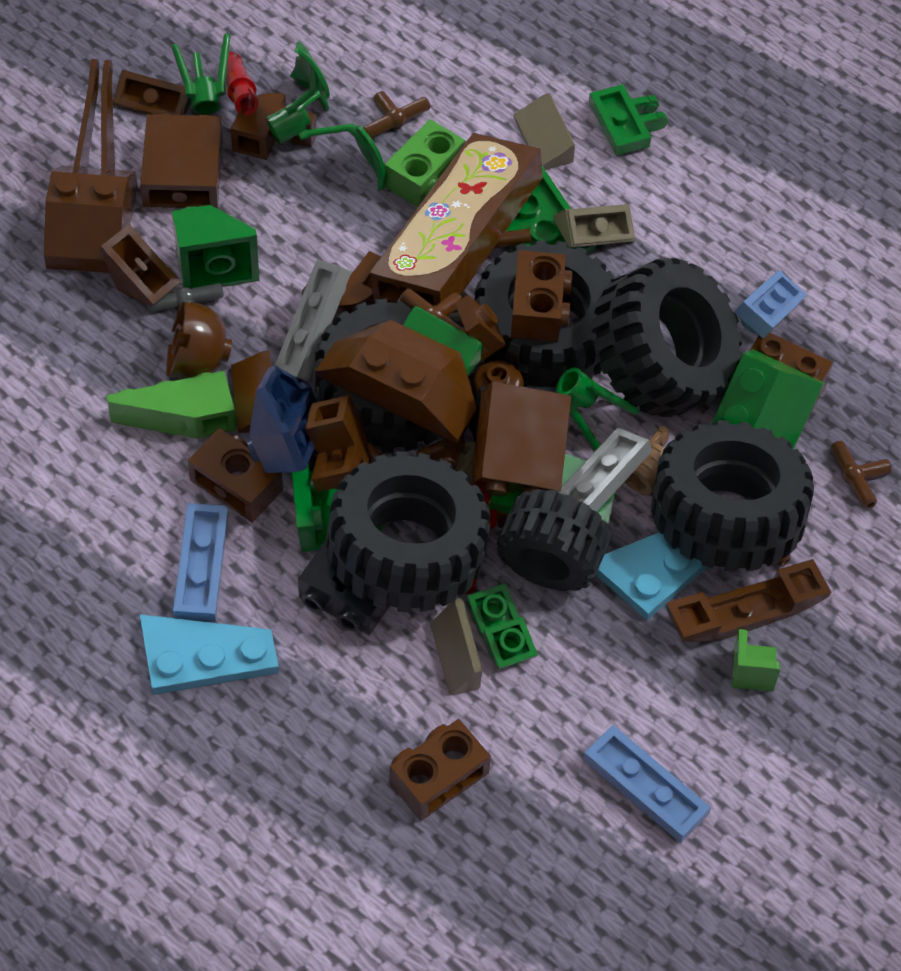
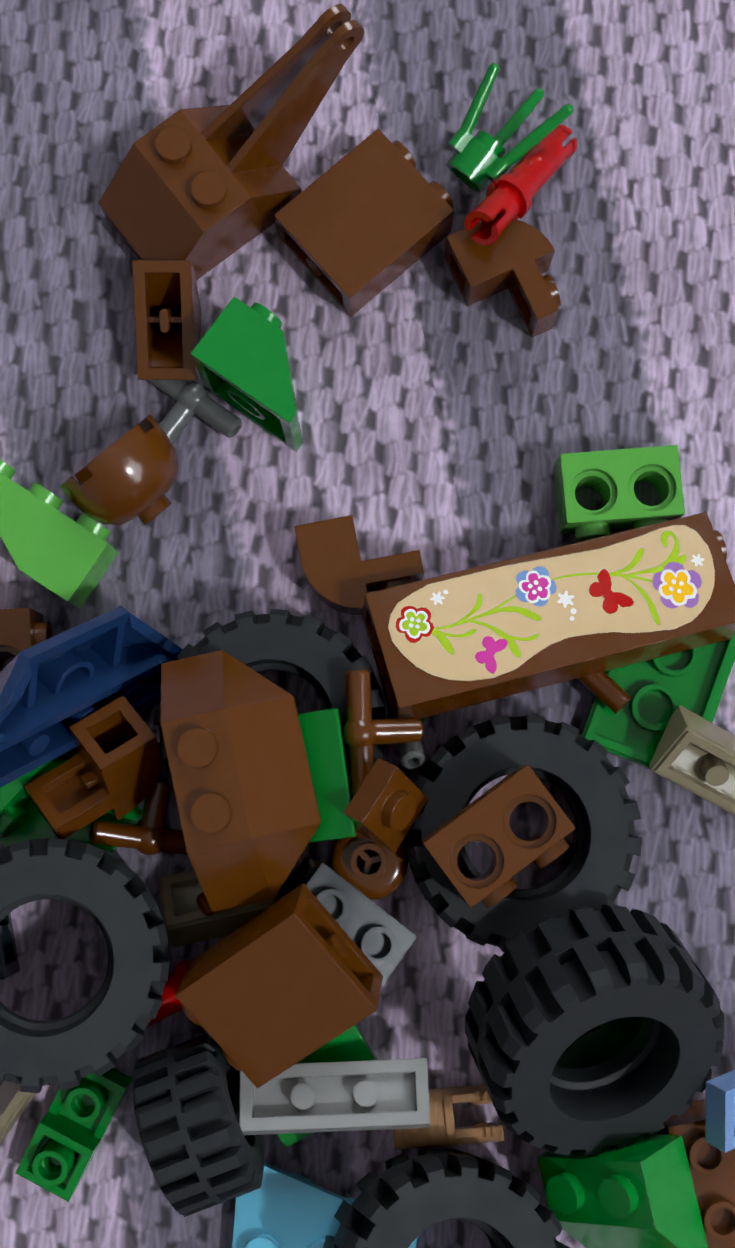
camera: 55 degrees right, 25 degrees up
(150, 95) = (429, 100): reddish brown slope -> none
(246, 379) = (141, 580): reddish brown slope -> none
(294, 118) = (518, 297): green plant -> none
(312, 317) = (262, 576): light grey plate -> none
(394, 116) = (660, 392): reddish brown piece -> none
(584, 394) = (425, 982): green plant -> none

